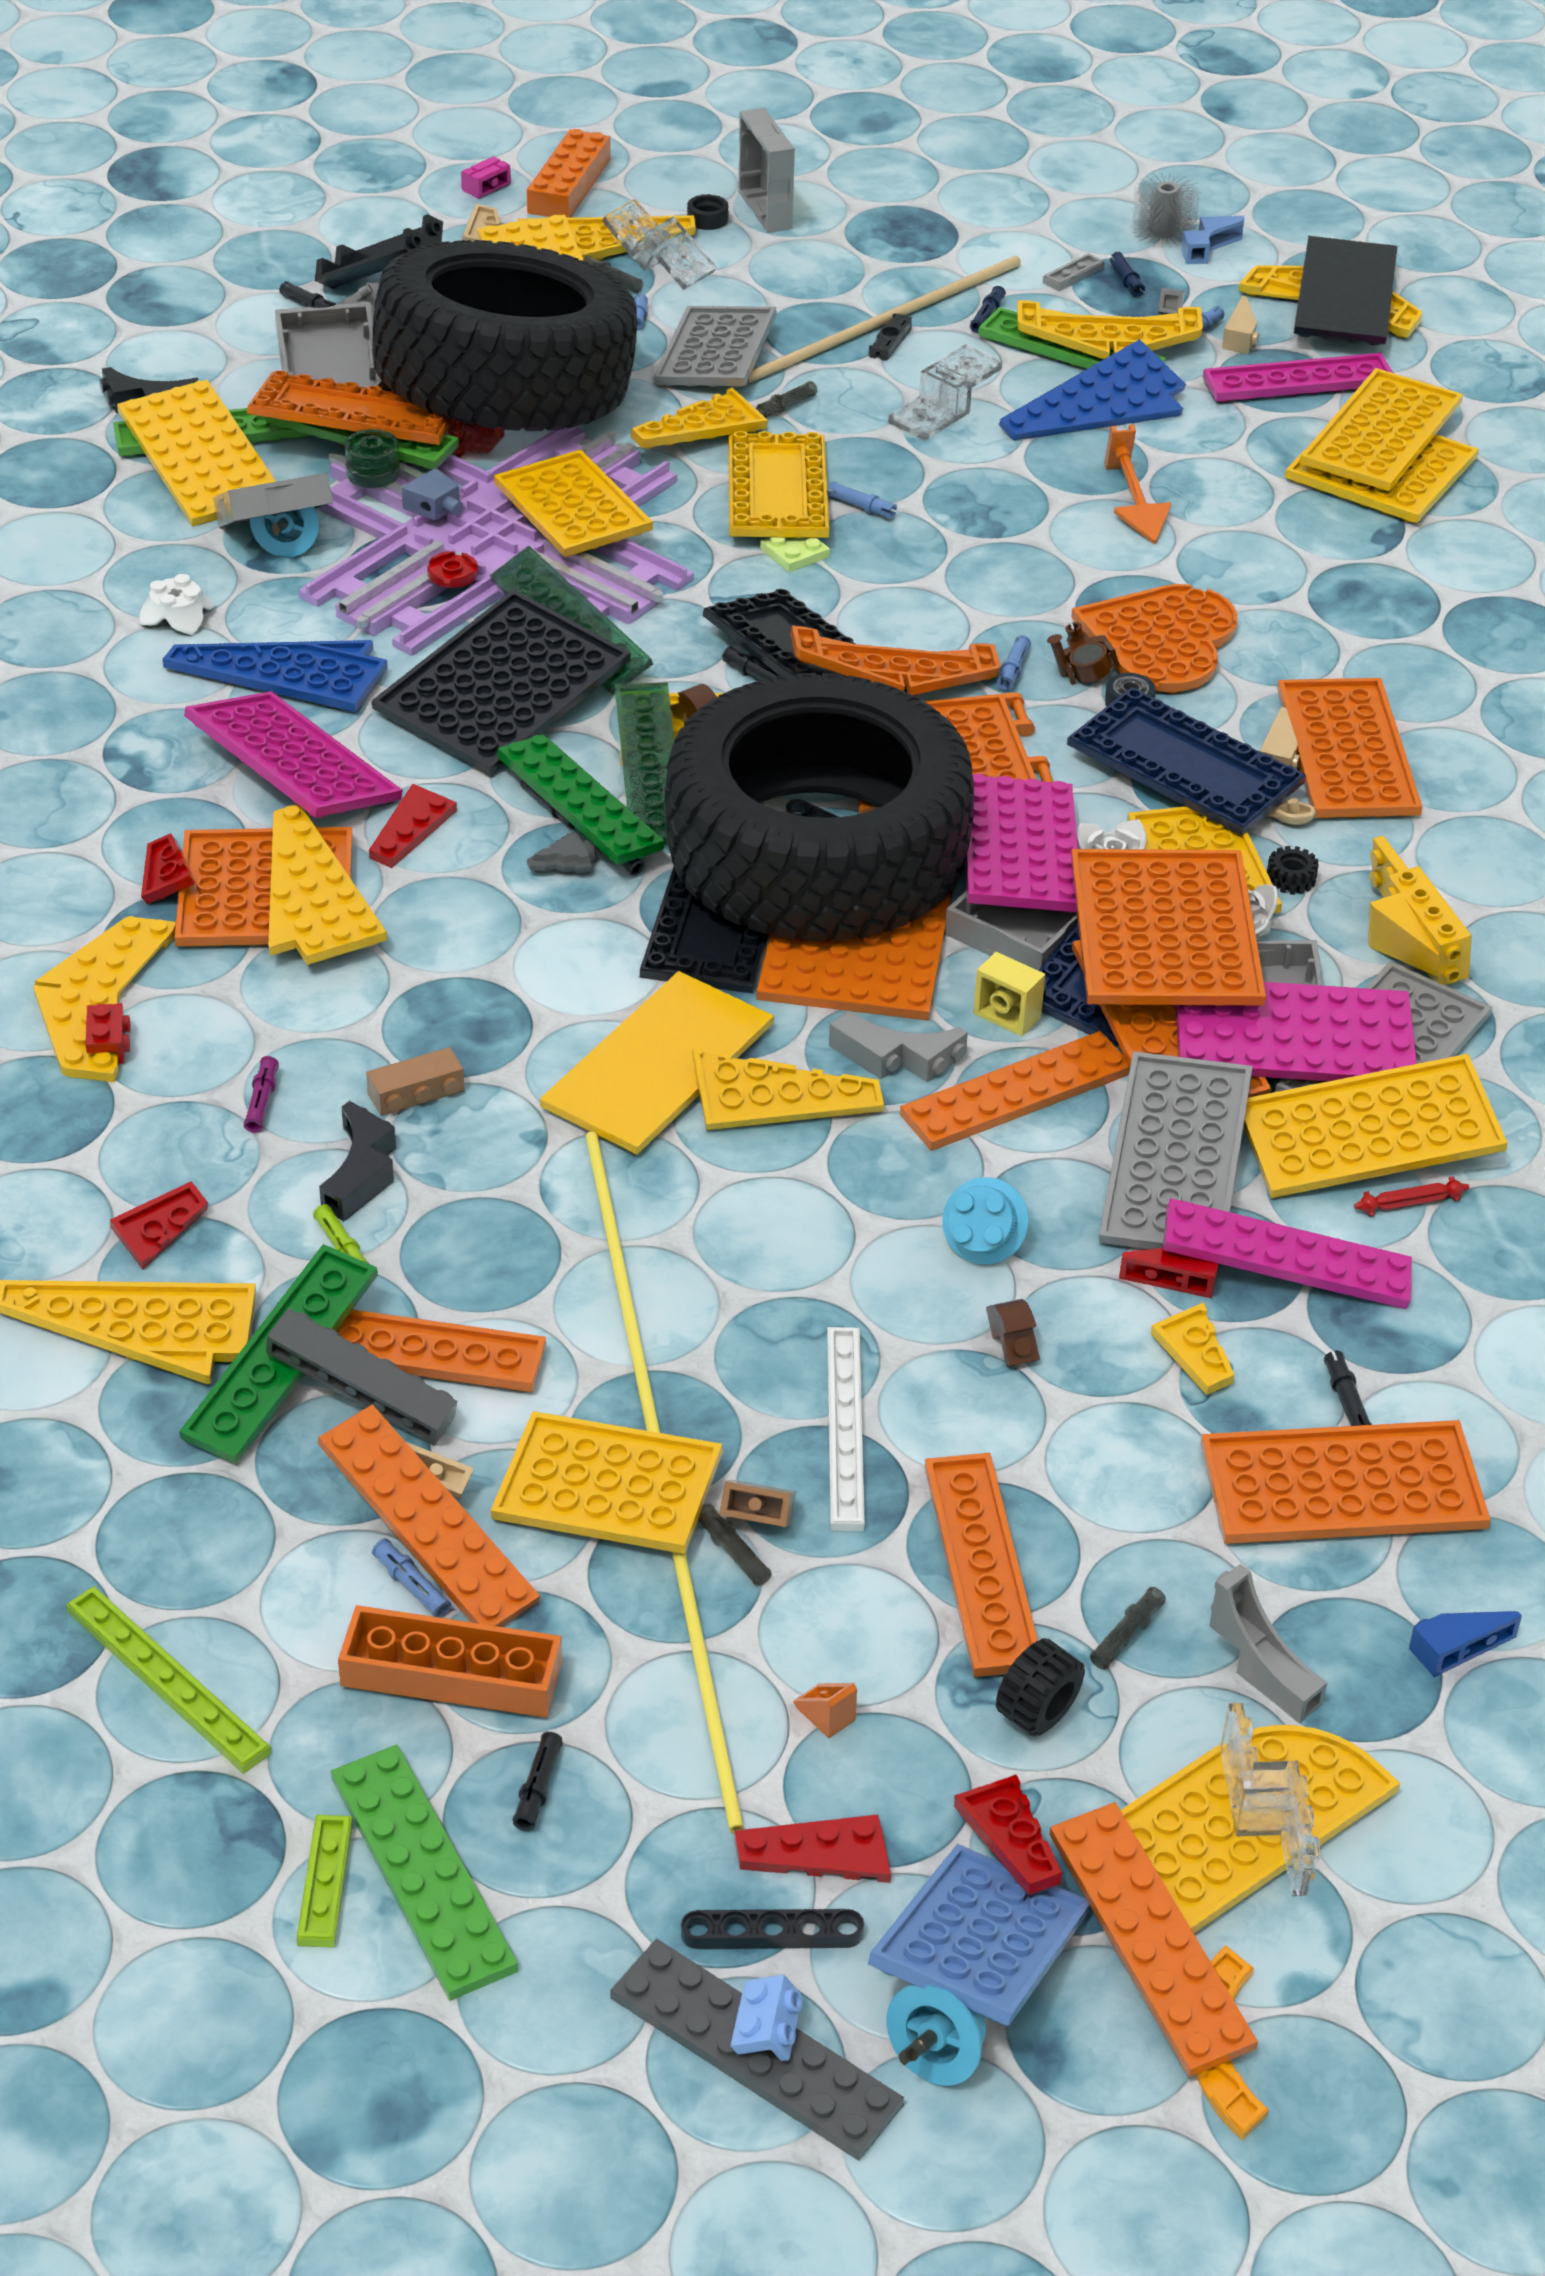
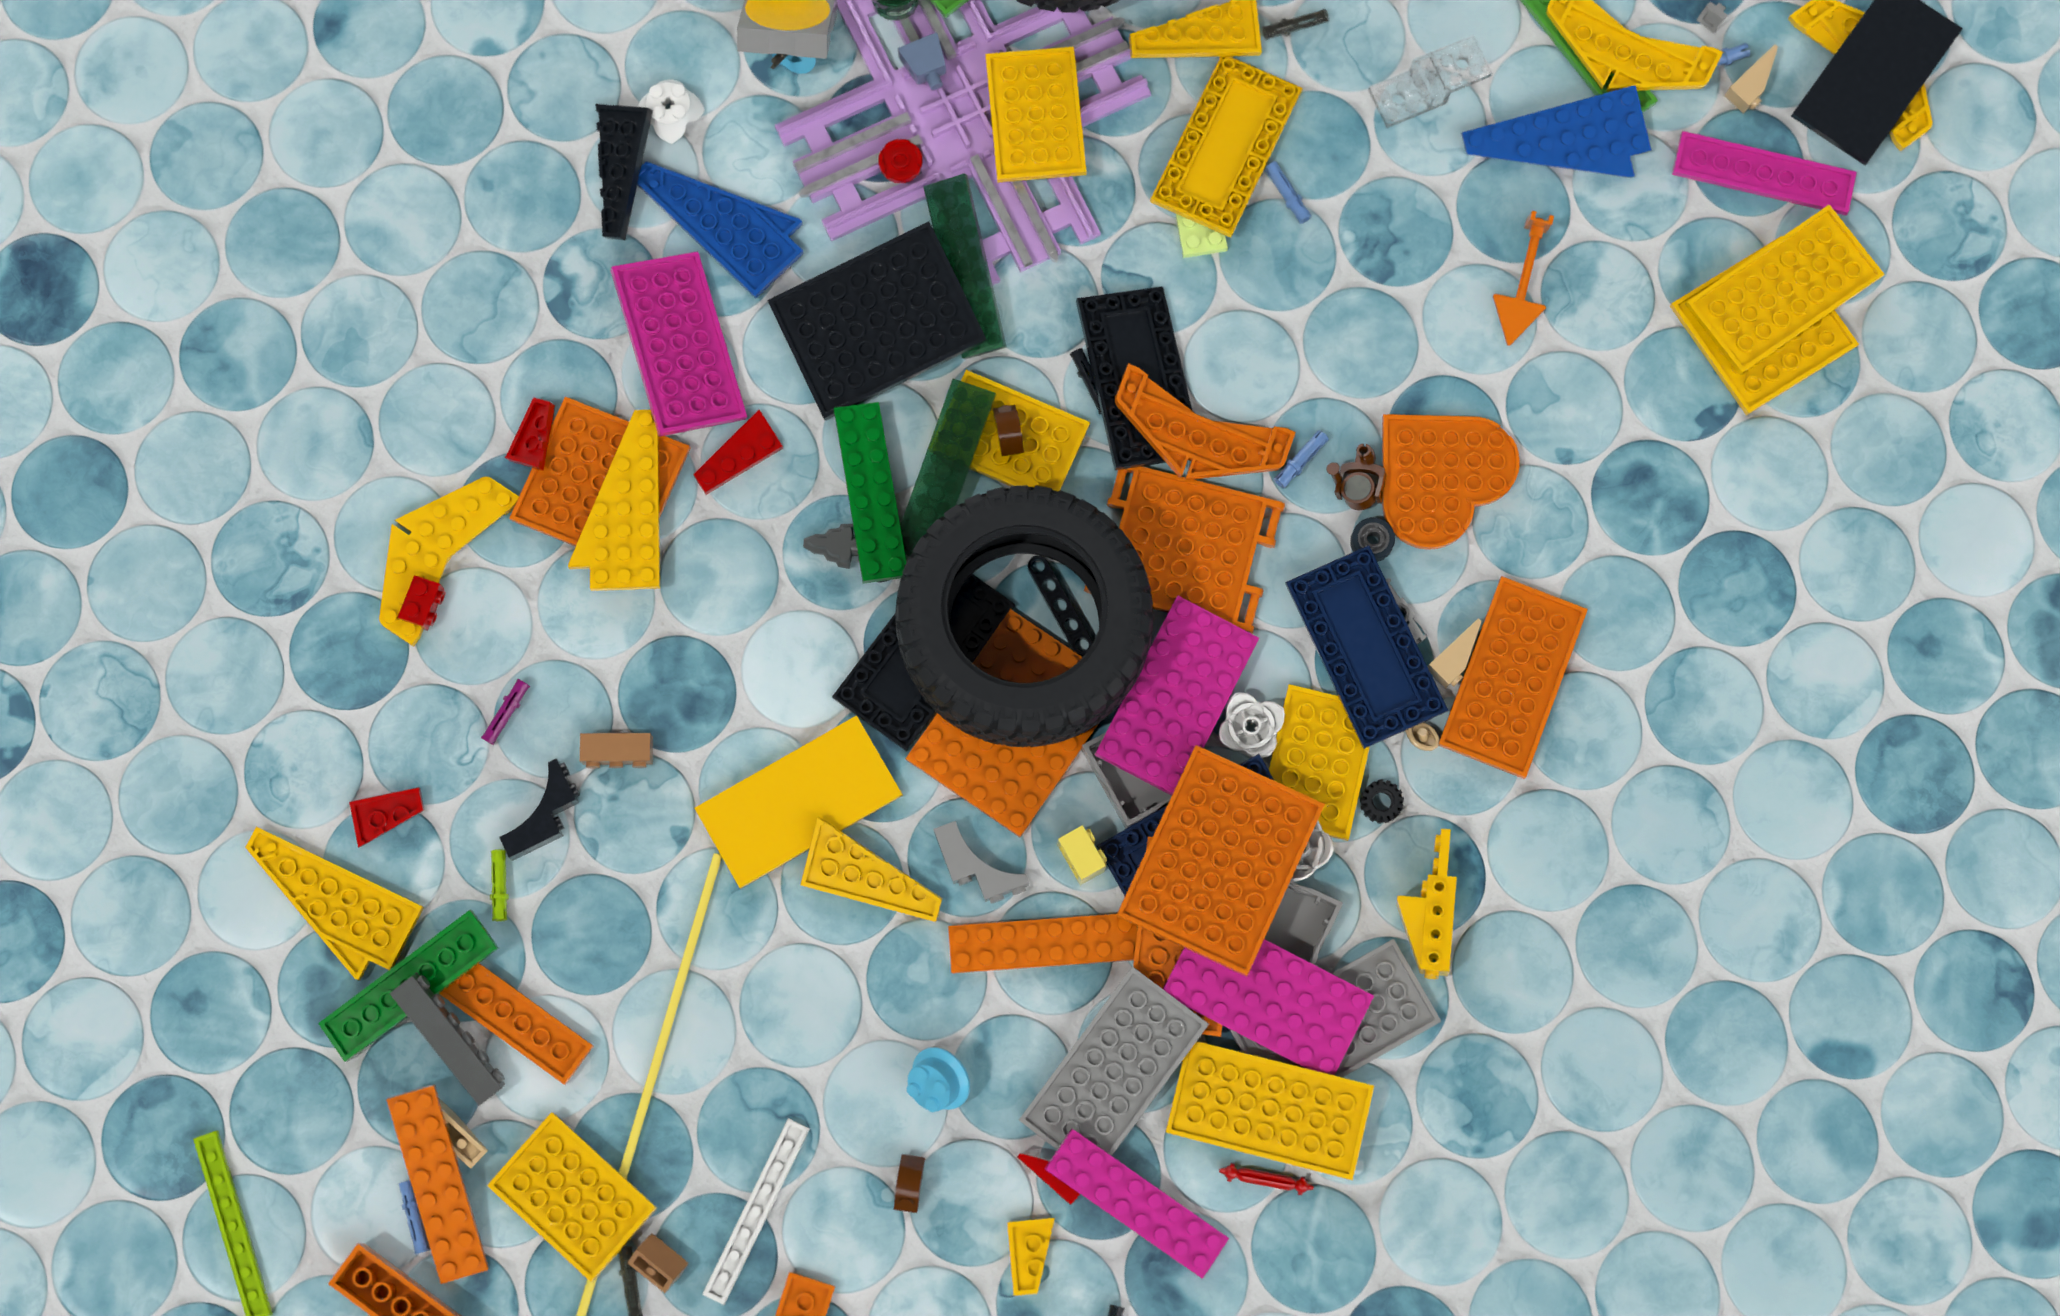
camera: 25 degrees right, 35 degrees up
(144, 648) = (620, 159): none -> black wing

